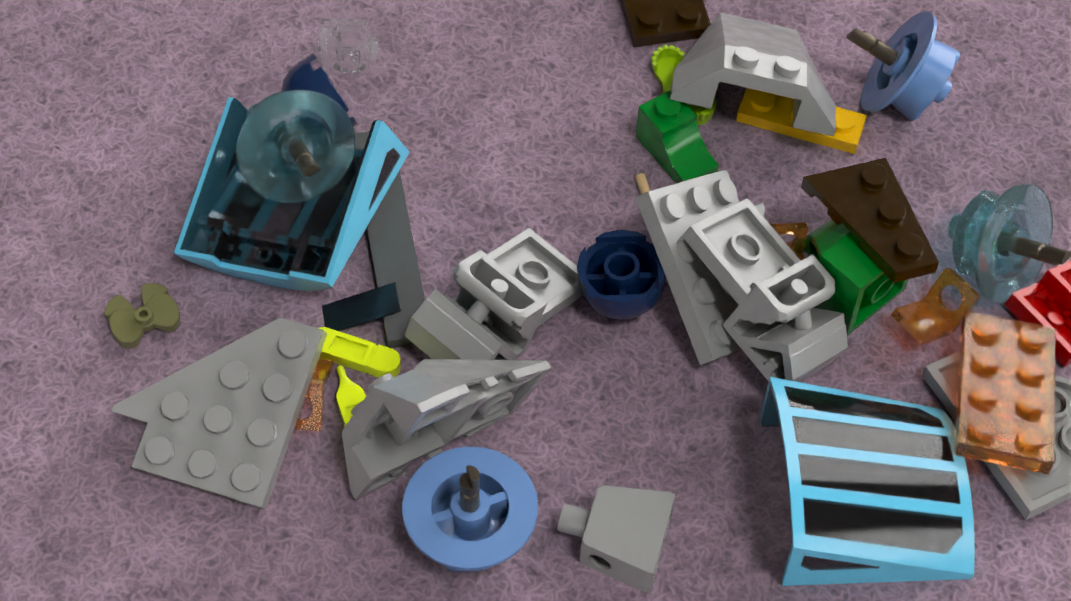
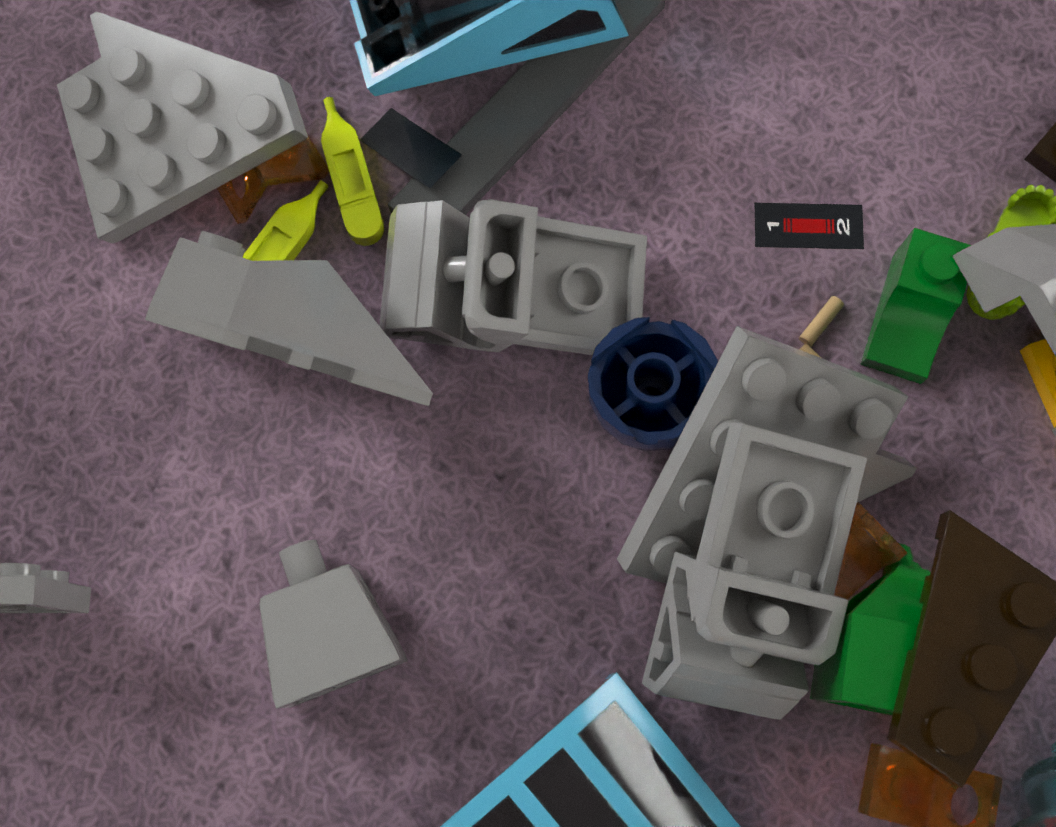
camera: 60 degrees right, 20 degrees up
(470, 508) = (211, 448): medium blue piece -> none
(584, 161) = (809, 225): none -> black sticker

